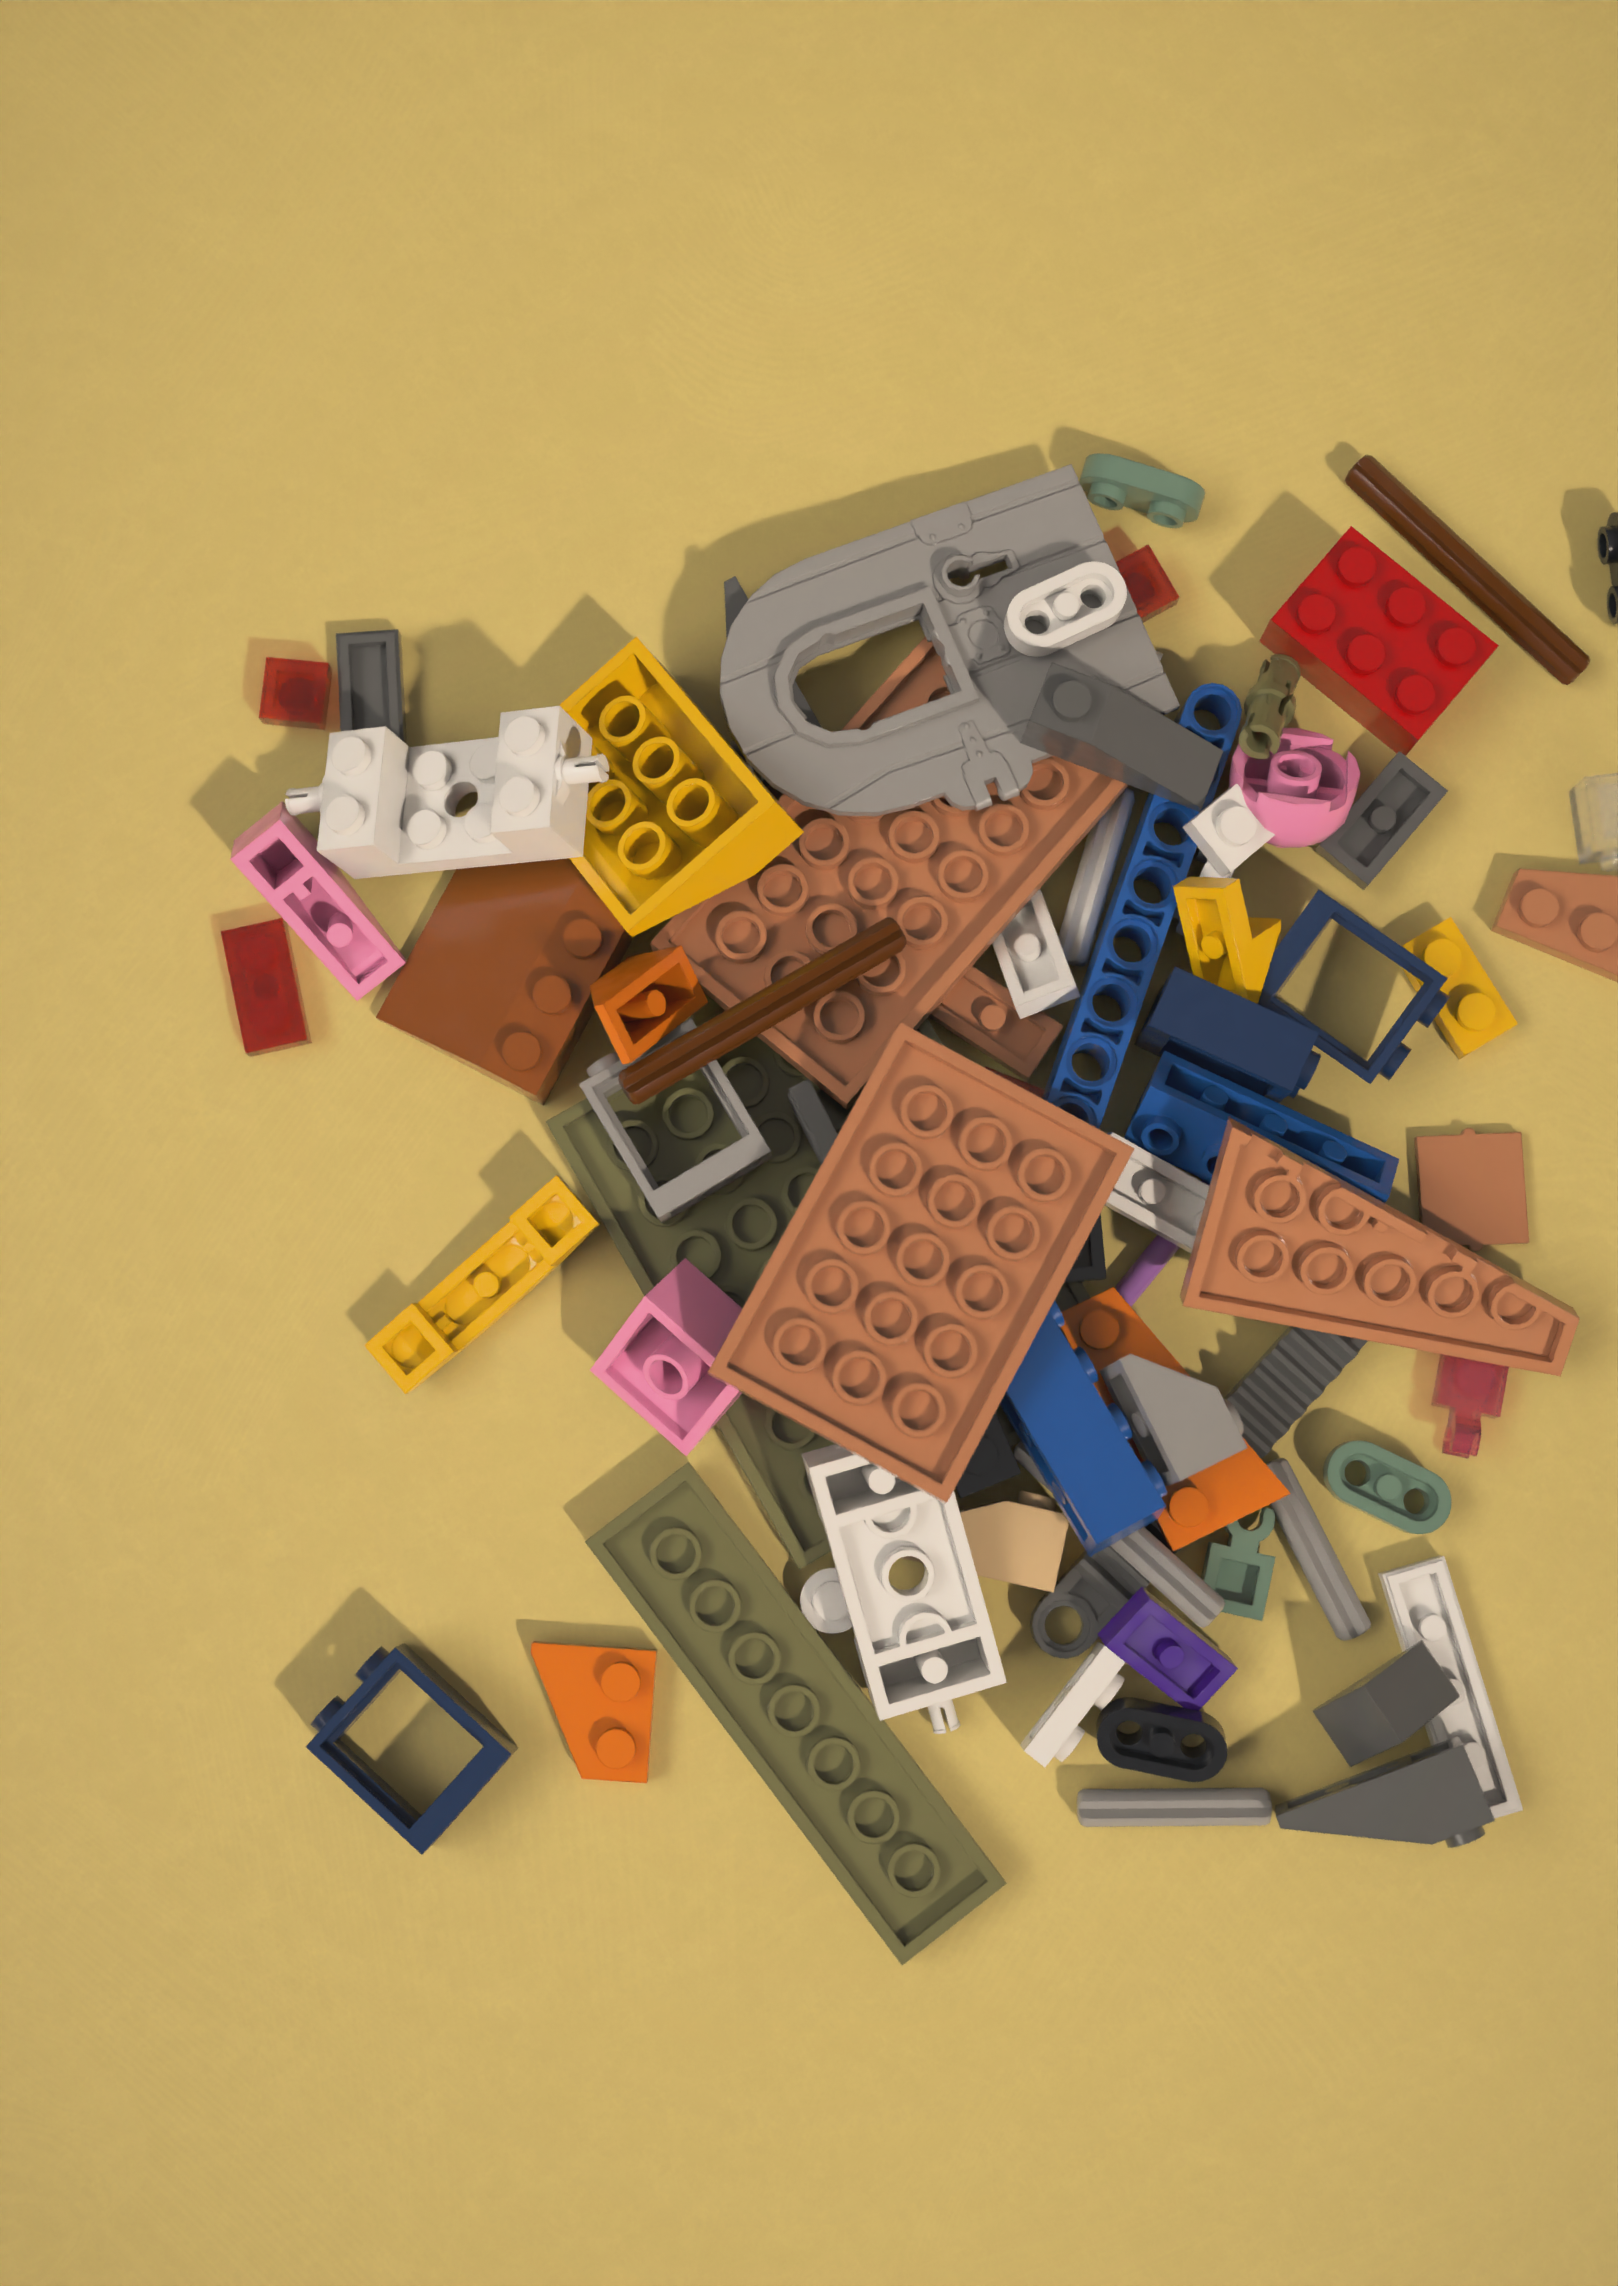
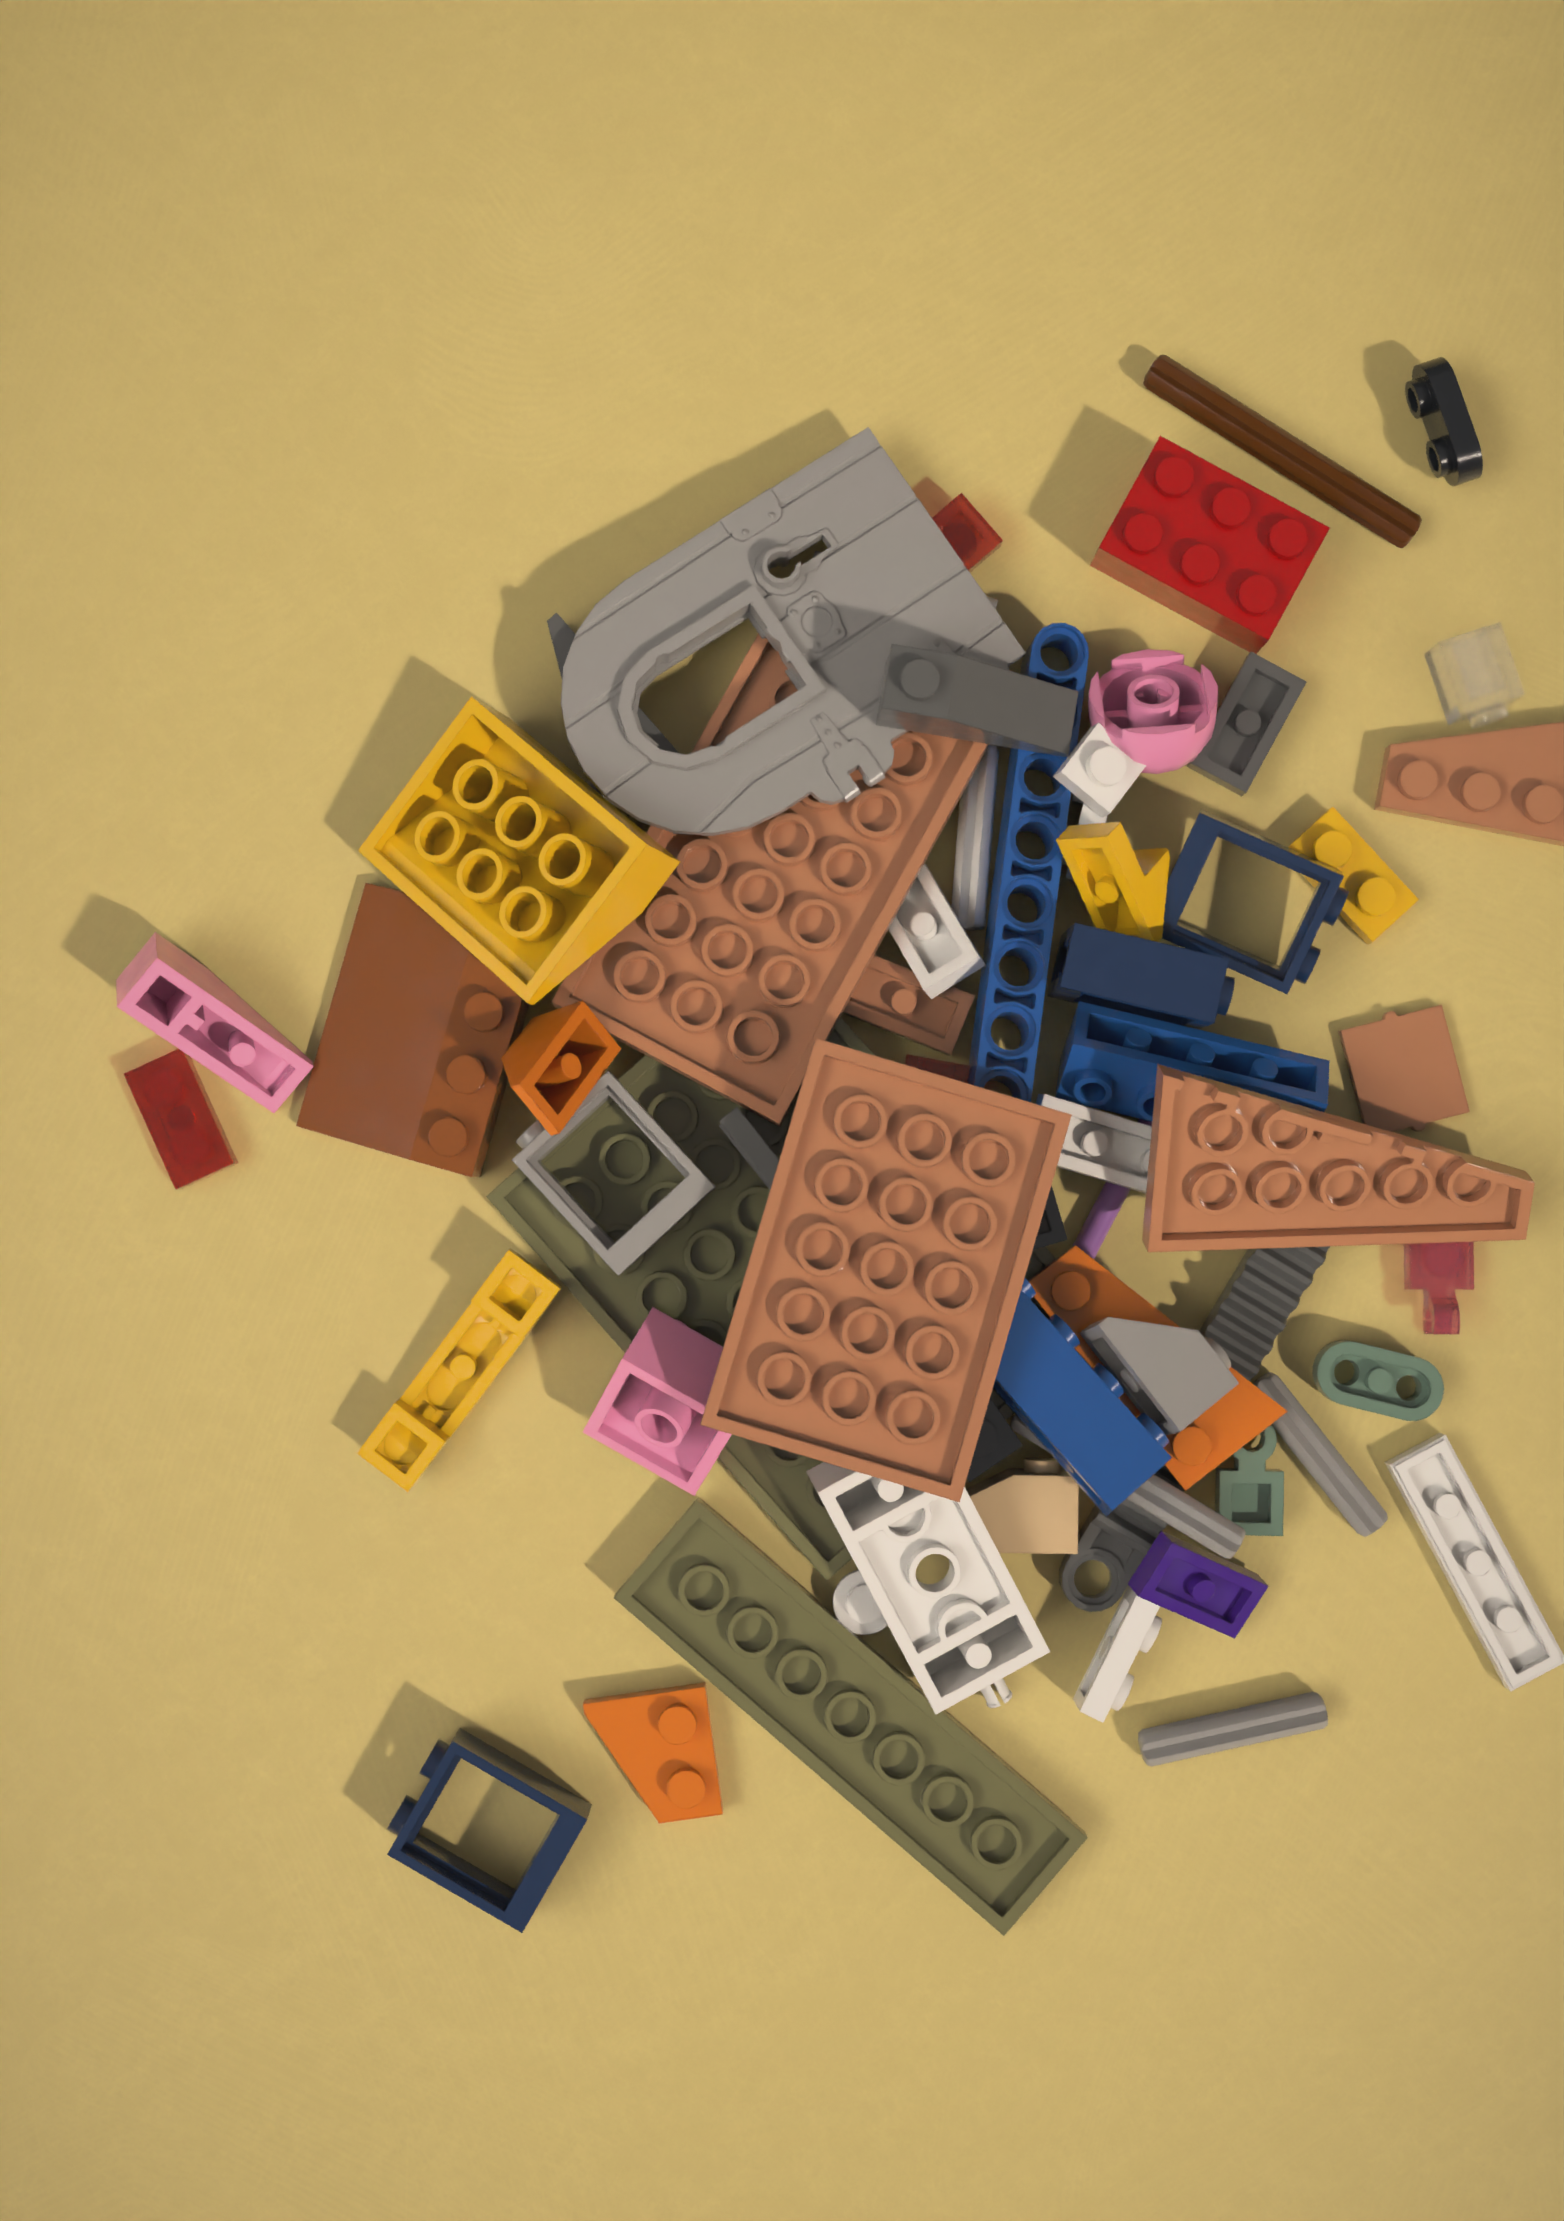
camera: 15 degrees left, 5 degrees up
(295, 693) = (143, 819): clear red plate -> none
(371, 681) = (219, 803): dark grey tile -> none
(396, 804) = (269, 916): white brick -> none
(762, 1011) = (677, 1050): reddish brown axle -> none
(1061, 610) = (889, 581): white plate -> none
(1157, 1743) = (1206, 1671): black plate -> none
(1159, 493) = (967, 439): sand green plate -> none
(1269, 706) = (1114, 634): olive pin -> none
(1387, 1704) = (1419, 1590): dark grey slope -> none
(1410, 1799) = (1451, 1680): dark grey slope -> none

